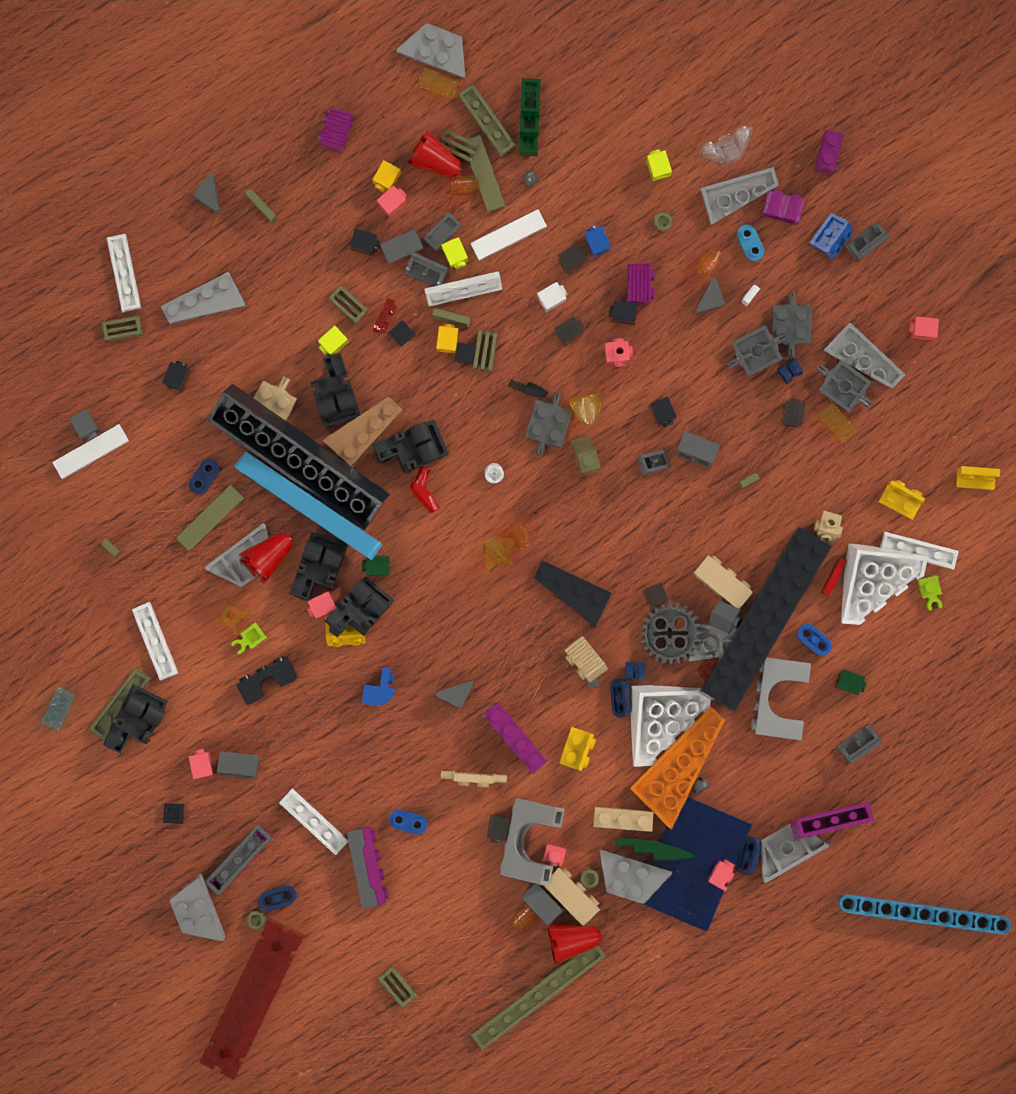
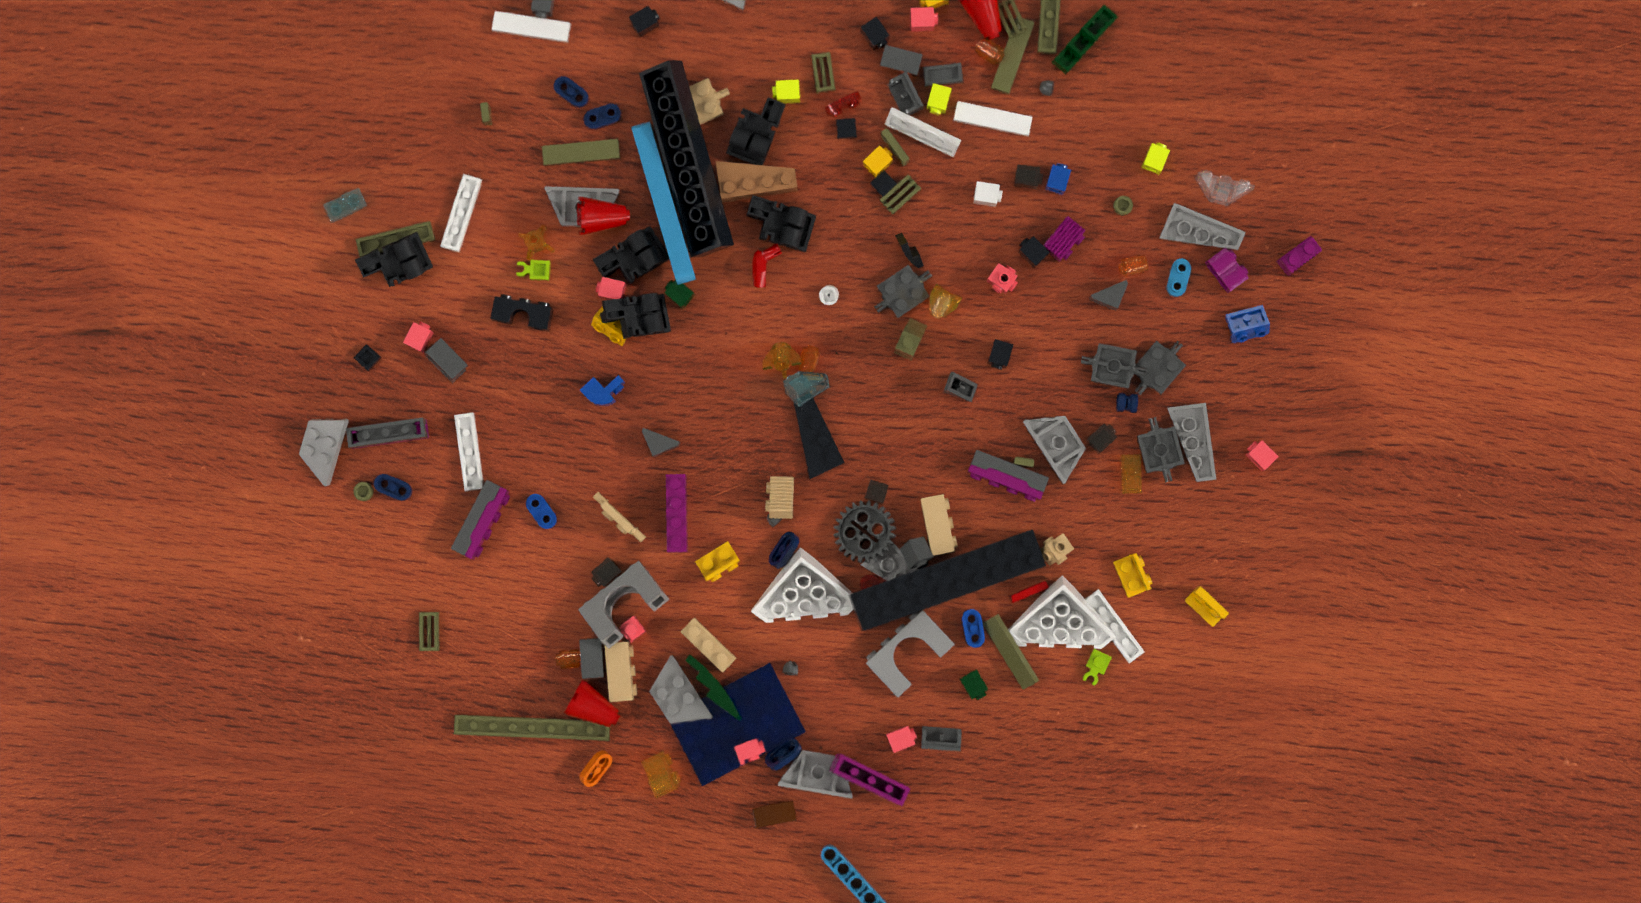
camera: 50 degrees right, 0 degrees up
(164, 477) = (572, 91): none -> dark blue plate
(251, 999) = (310, 548): clear red brick -> none
(533, 558) = (805, 386): none -> clear light blue slope
(569, 331) = (979, 231): clear smoke brick -> none
(589, 878) = (645, 670): olive tile -> none
(614, 986) = (595, 768): none -> orange plate
(639, 673) = (817, 538): dark blue wheel -> none
(670, 950) = (660, 774): none -> clear yellow brick
(672, 776) = (773, 644): orange wing -> none
(697, 450) = (1003, 405): dark grey hinge -> none
(745, 500) = (1009, 475): none -> piece
(750, 295) = (1144, 318): white tile -> none
(763, 445) = (1057, 443): none -> light grey wing
(779, 907) = (774, 814): none -> reddish brown slope
(829, 769) = (901, 738): none -> coral brick
(857, 634) = (1010, 651): none -> olive tile
(866, 242) = (1271, 351): dark grey hinge -> none

